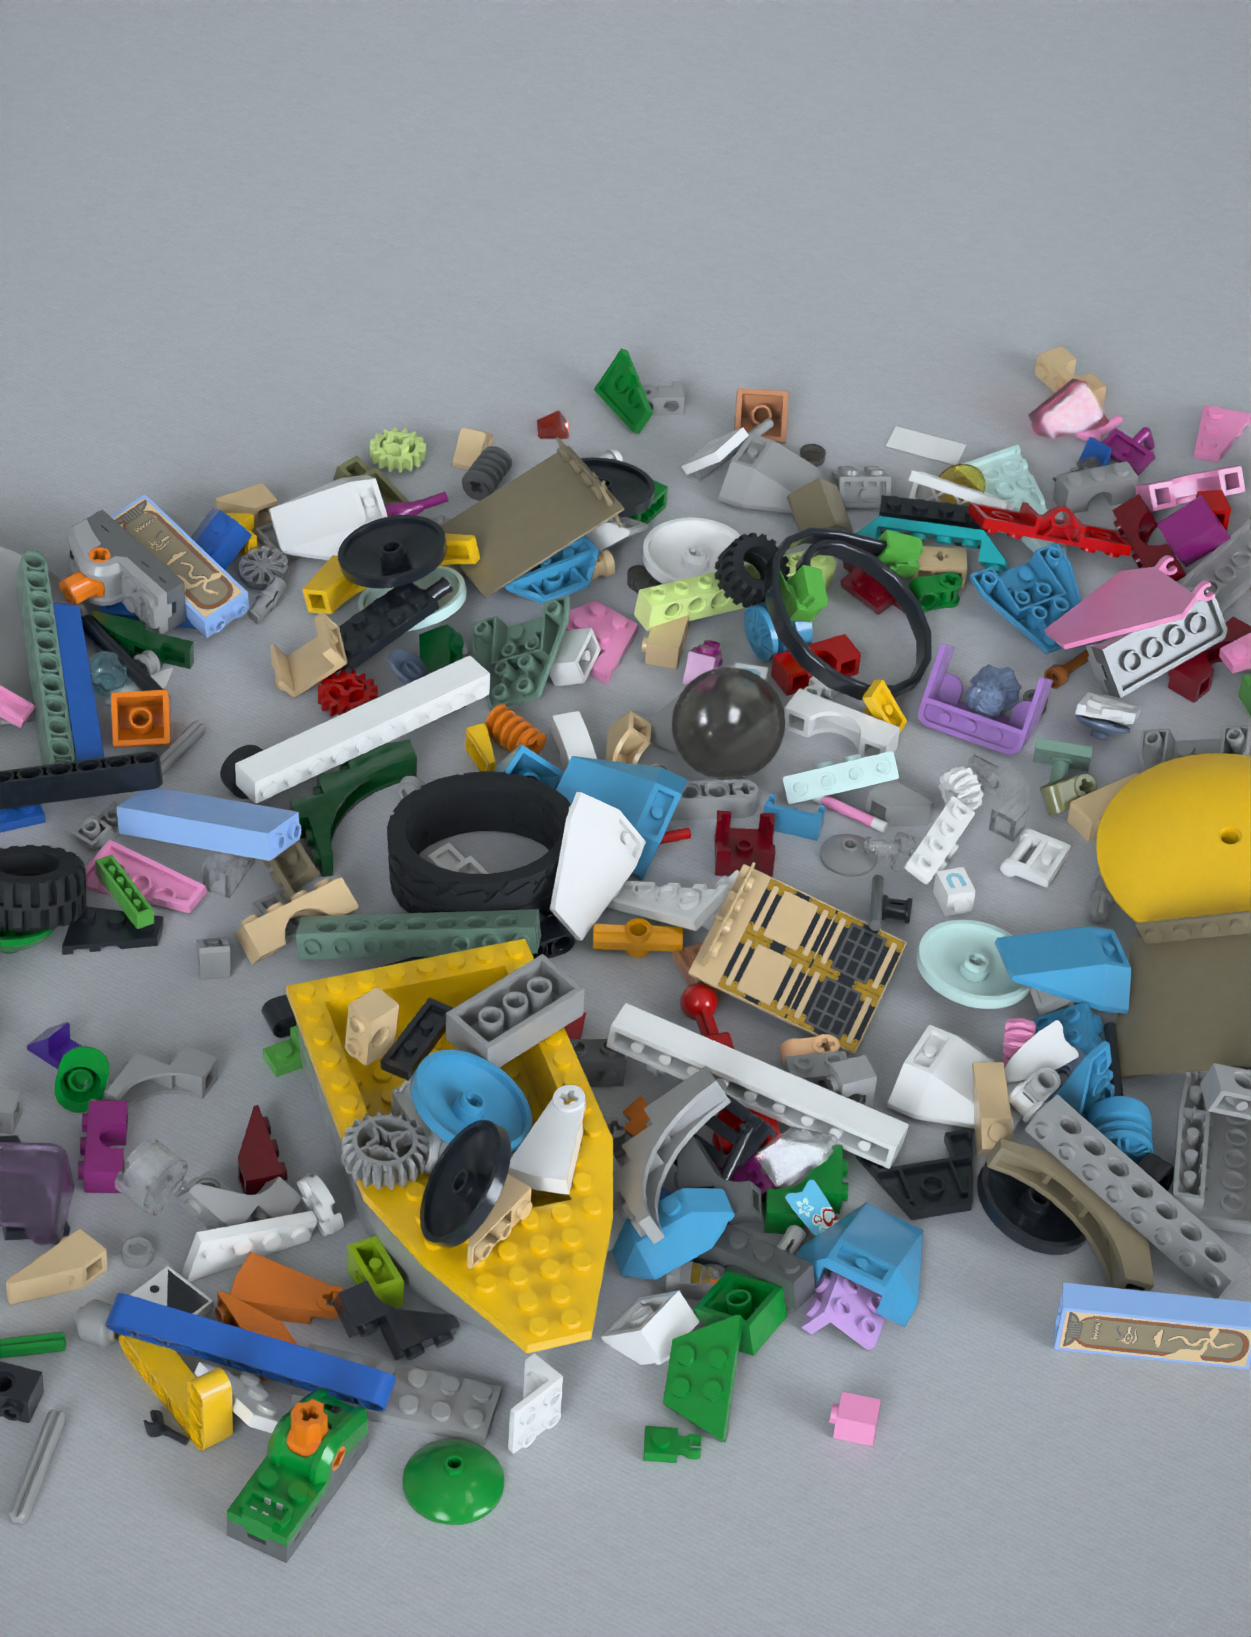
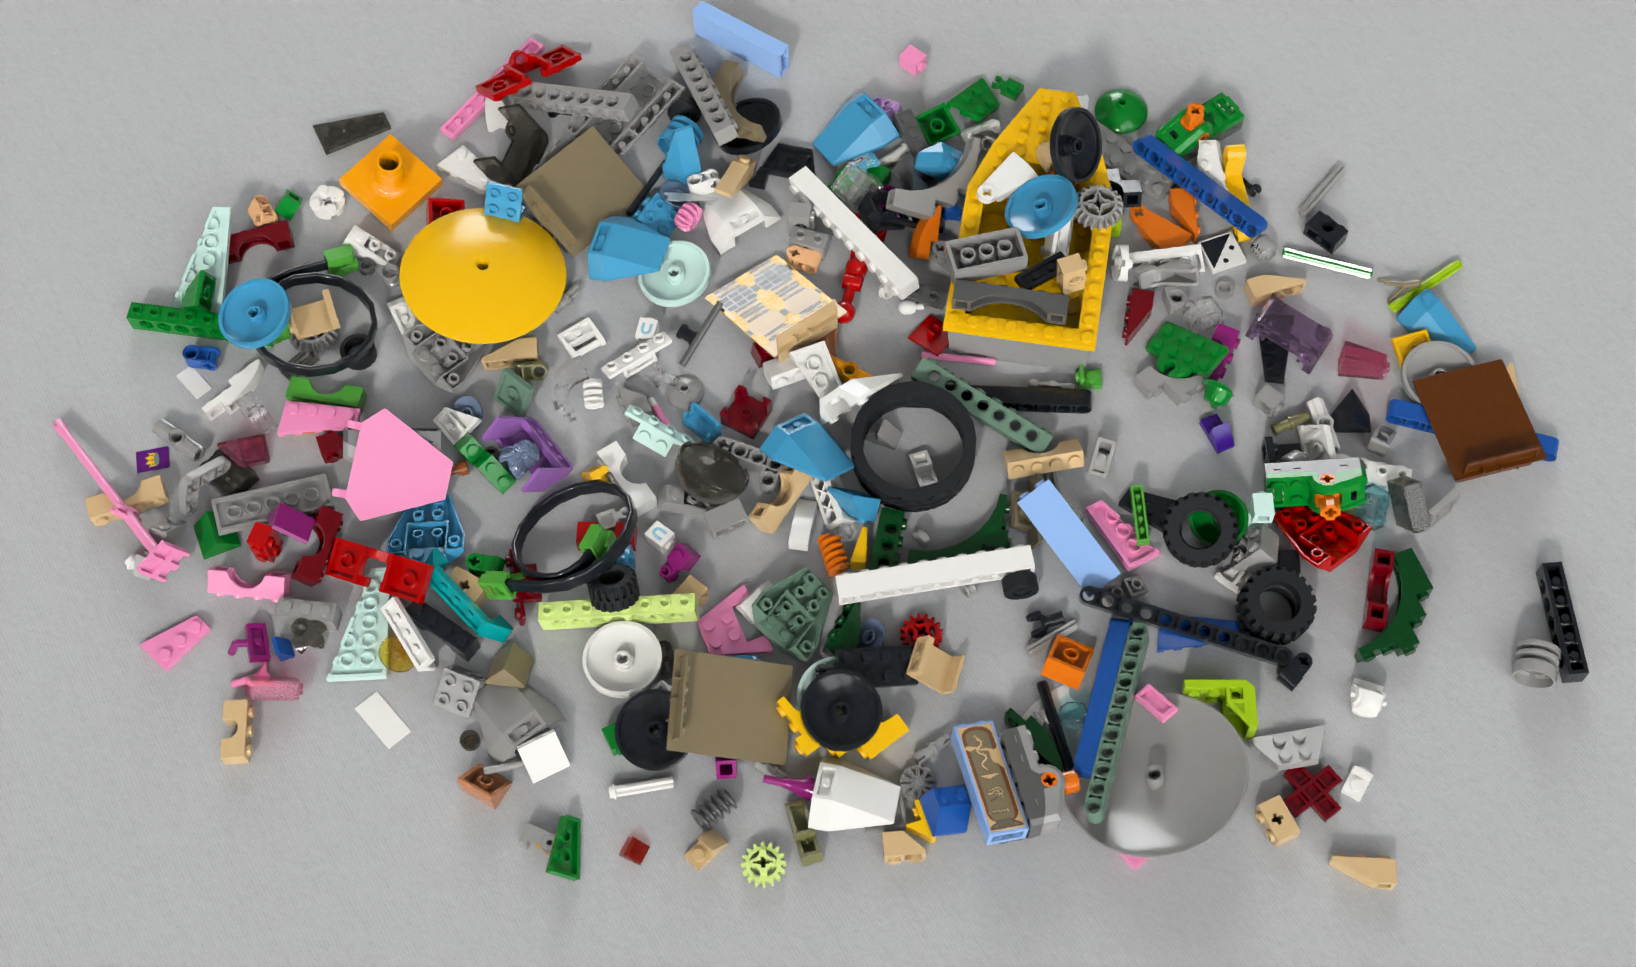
camera: 145 degrees left, 20 degrees up
(153, 1113) = (1185, 352): none -> green plate
(195, 757) = (1047, 621): none -> black piece
(414, 989) = (1048, 306): none -> dark grey arch
(445, 748) = (888, 520): none -> dark green brick
(1067, 683) = (484, 463): none -> green arch

